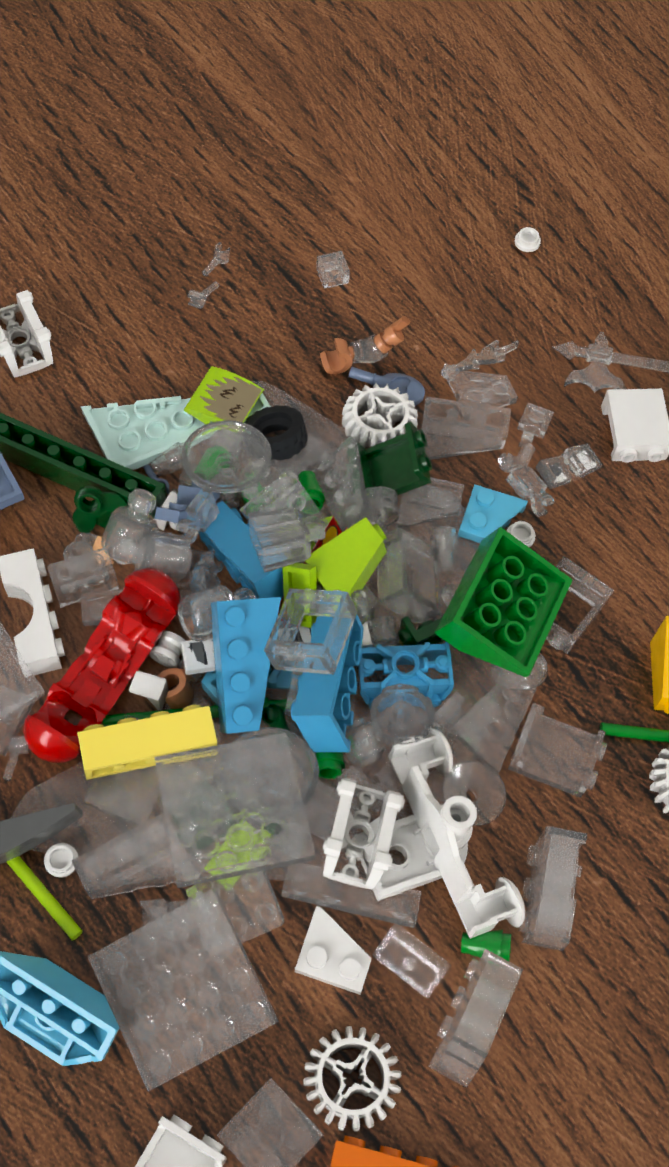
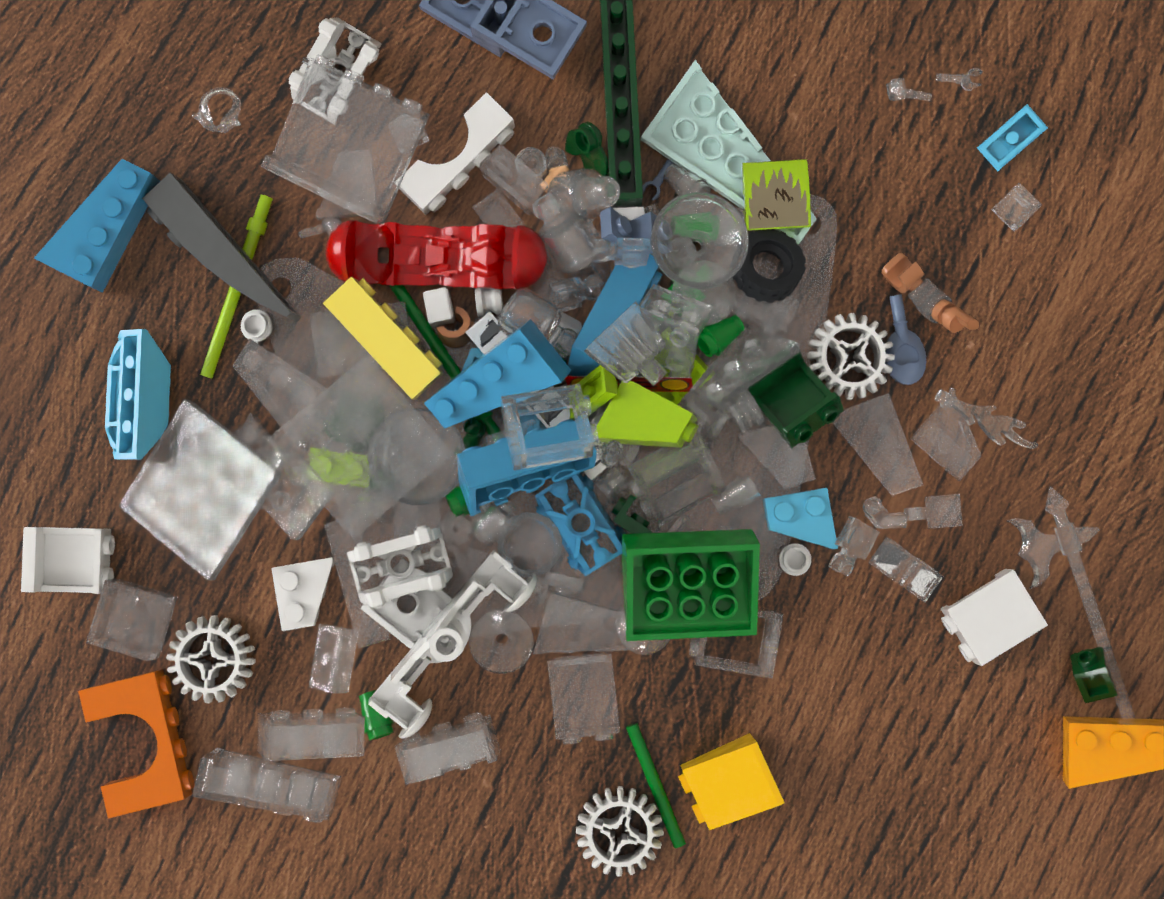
camera: 70 degrees right, 25 degrees up
(280, 249) = (1012, 137): none -> medium azure slope
(507, 1086) = (266, 785): none -> clear wedge

